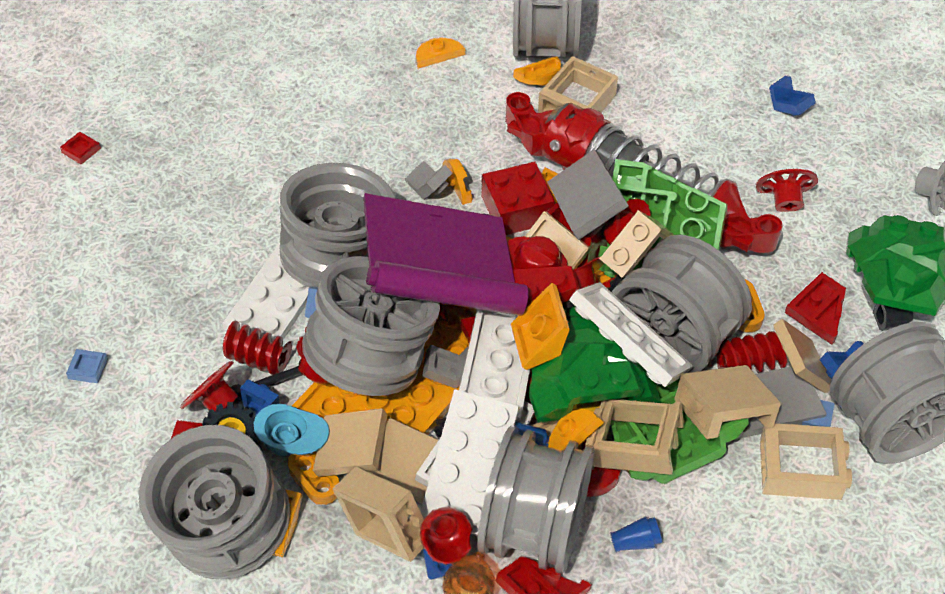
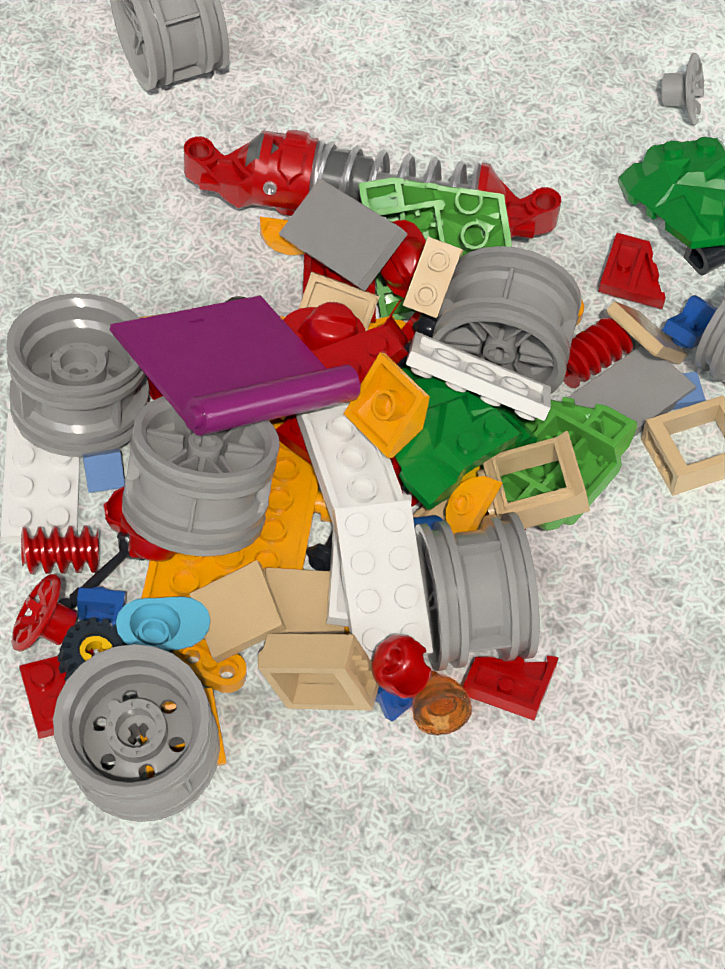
camera: 30 degrees left, 5 degrees up
(426, 180) = (139, 282): light grey bracket -> none
(437, 51) = (51, 113): light orange plate -> none
(444, 366) = (294, 487): light grey bracket -> none
(456, 180) = (166, 264): light orange plate -> none
(516, 196) = (252, 262): red brick -> none
(539, 72) = (188, 101): light orange plate -> none
(581, 73) = (237, 85): tan window -> none
(638, 535) = (578, 587): blue cone -> none
(725, 396) = (600, 409): tan panel -> none
(787, 99) = (483, 41): blue bracket -> none
(788, 192) = (537, 154): red wheel -> none

